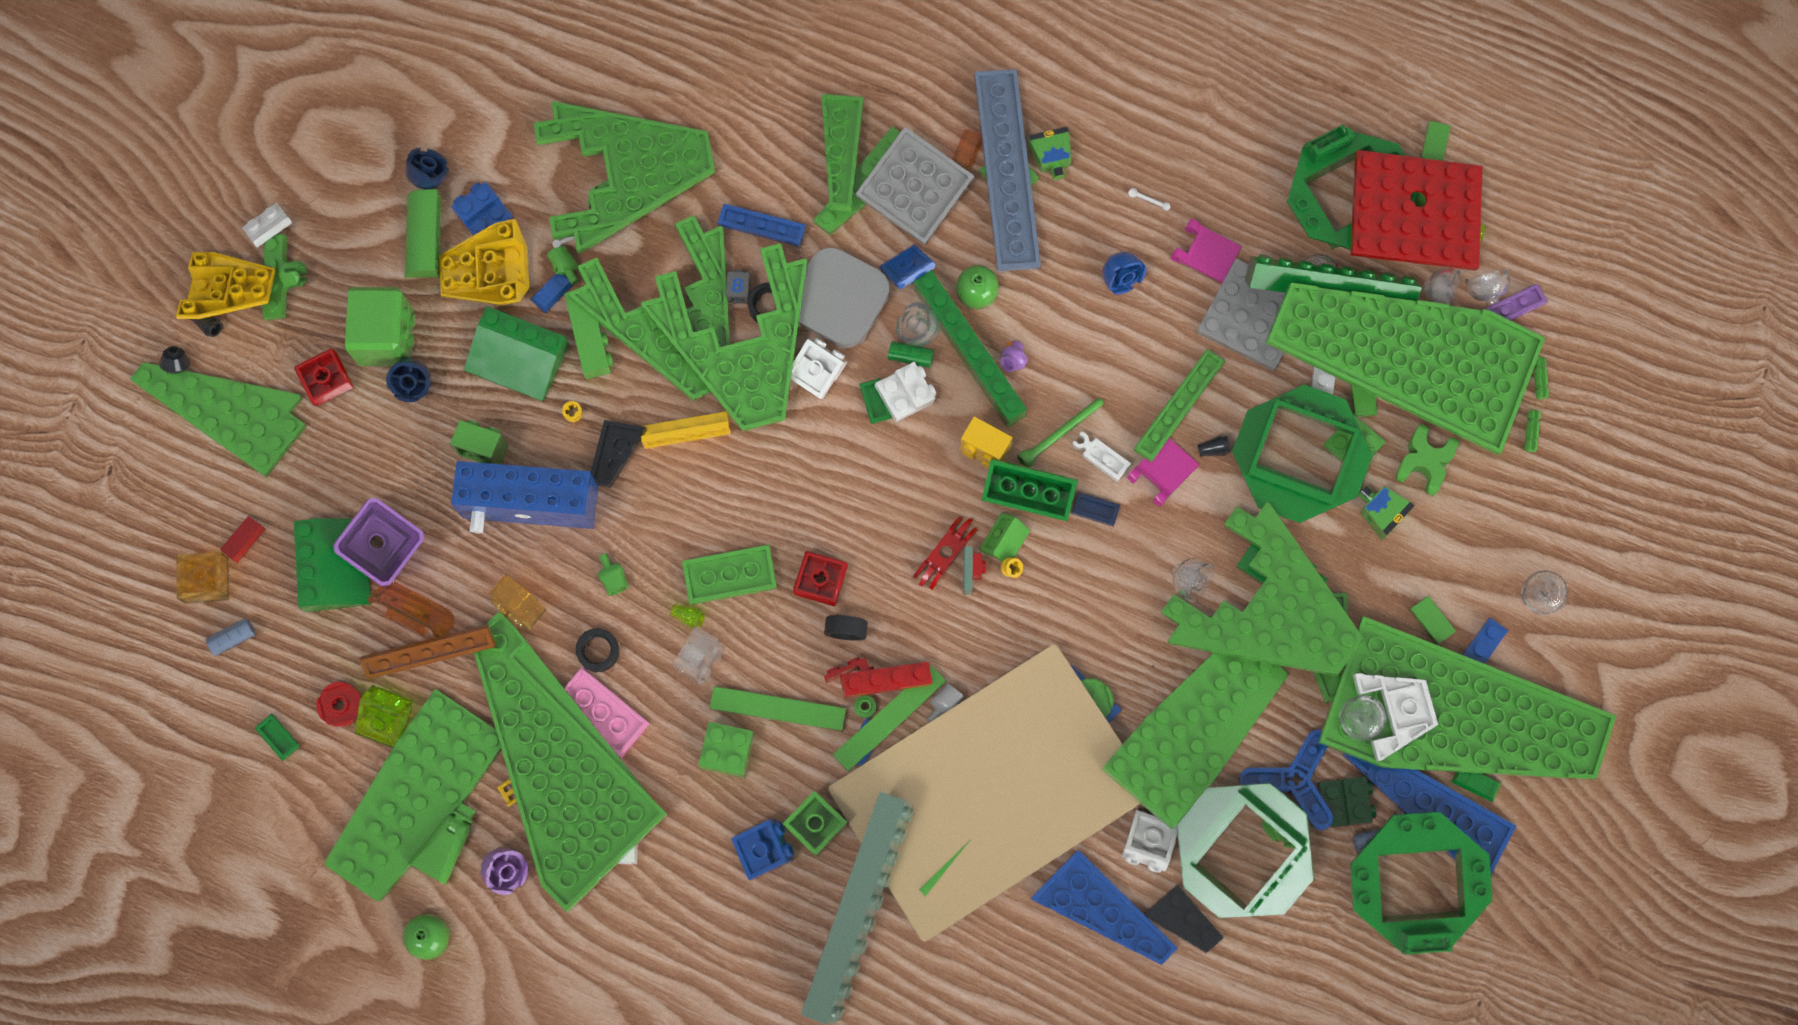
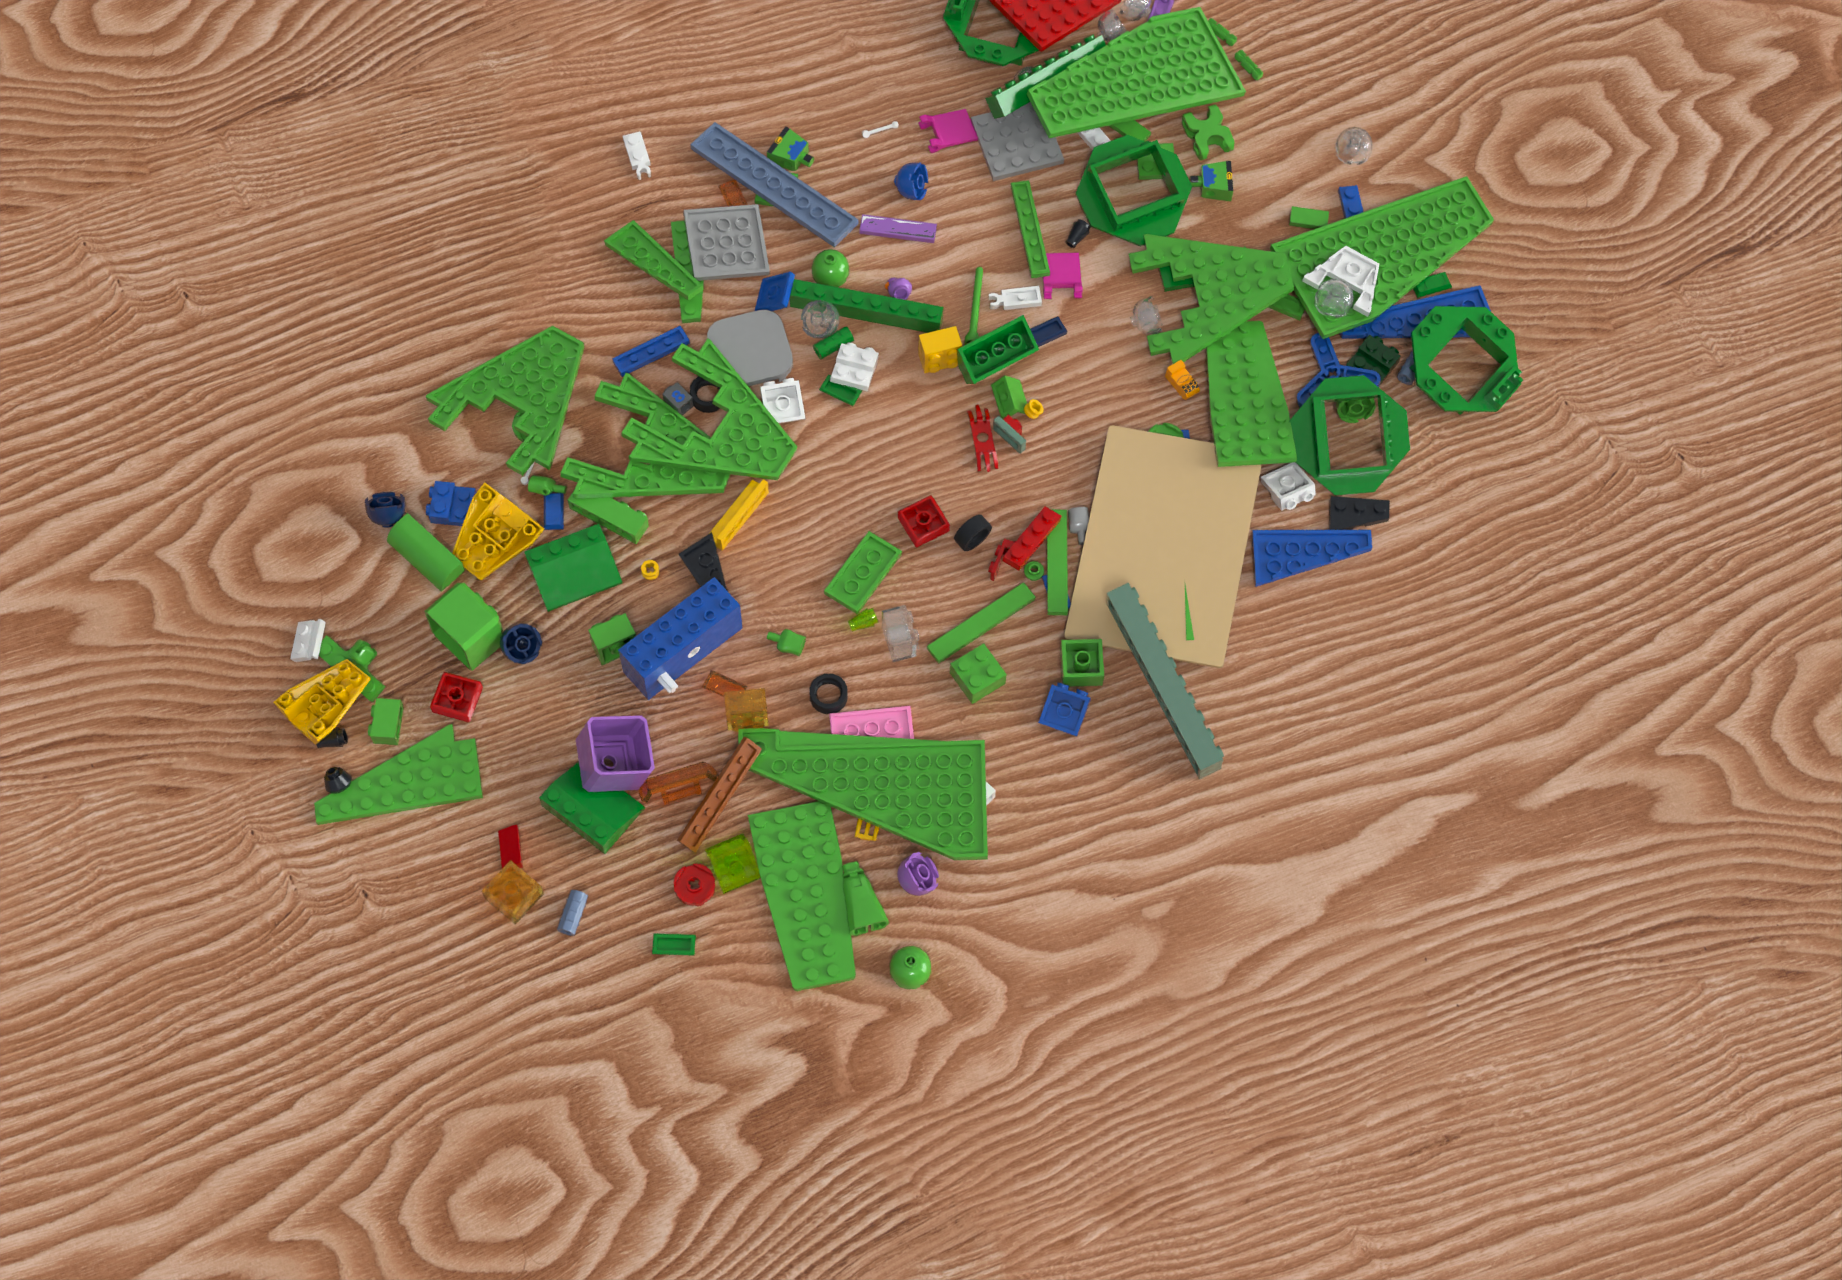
camera: 50 degrees left, 10 degrees down
(256, 347) = (386, 721): none -> bright green brick
(527, 565) = (719, 684): none -> clear orange tile
(929, 40) = (637, 153): none -> white plate
(1070, 302) = (898, 228): none -> medium lavender tile
(1162, 661) = (1182, 380): none -> light orange leg

